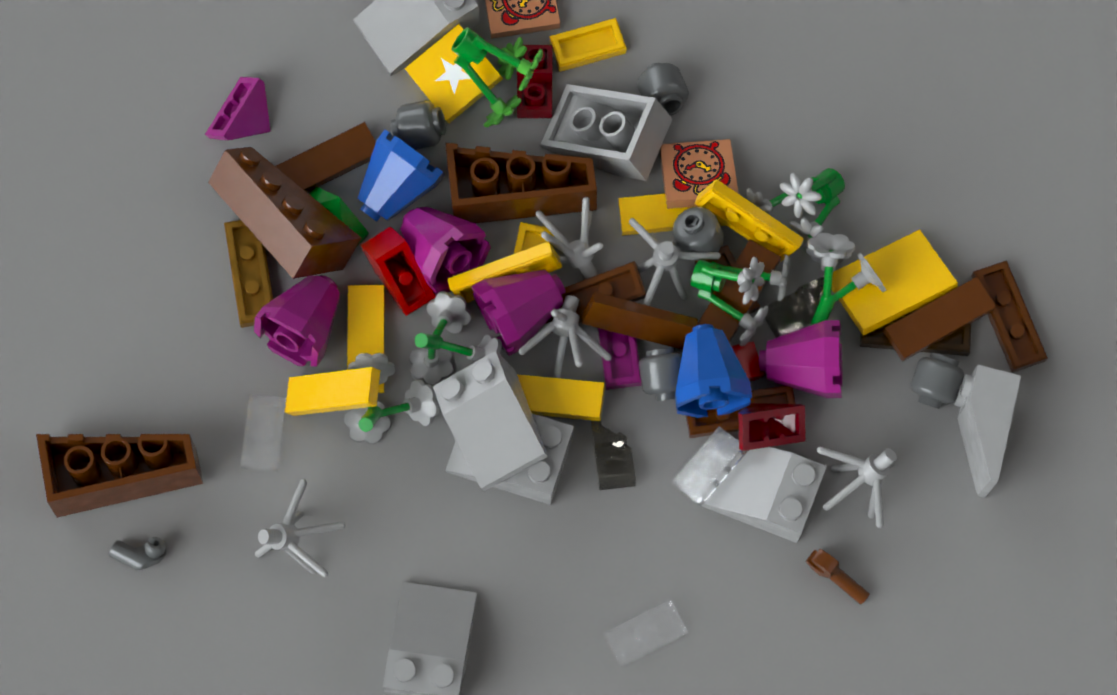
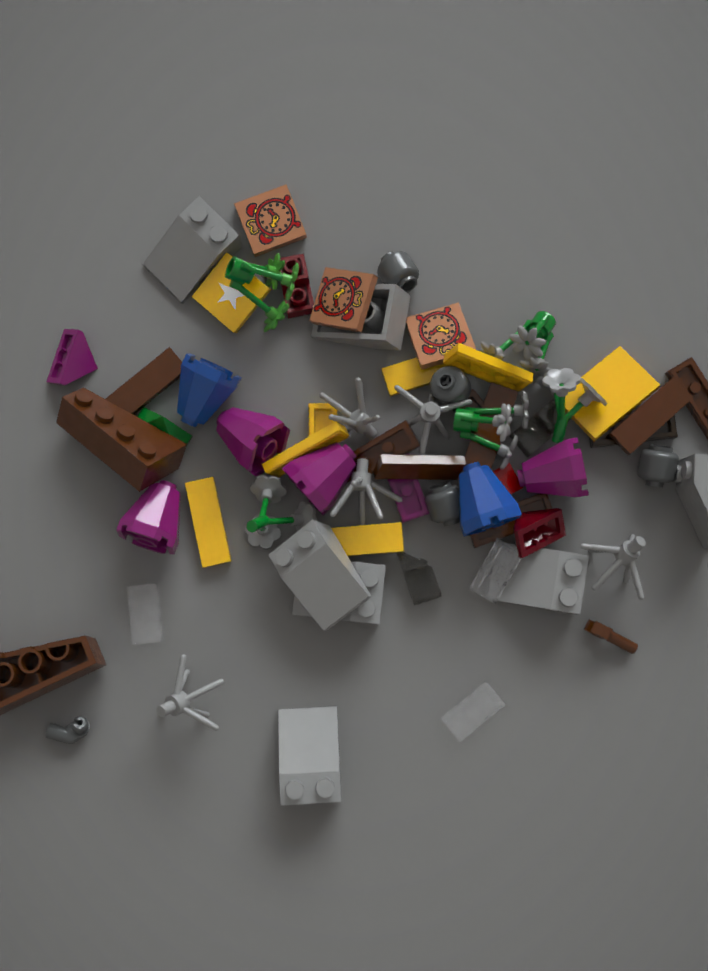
camera: 10 degrees left, 10 degrees up
(248, 271) = (105, 488): pearl gold tile -> none
(332, 391) = (191, 575): yellow tile -> none
(372, 421) = (222, 584): light grey plant -> none
(398, 270) = (221, 463): red slope -> none
(419, 124) = (212, 341): dark grey head -> none
(516, 185) = (299, 375): reddish brown wedge -> none
(587, 44) = (331, 247): yellow tile -> none
(588, 105) = (343, 299): none -> nougat tile

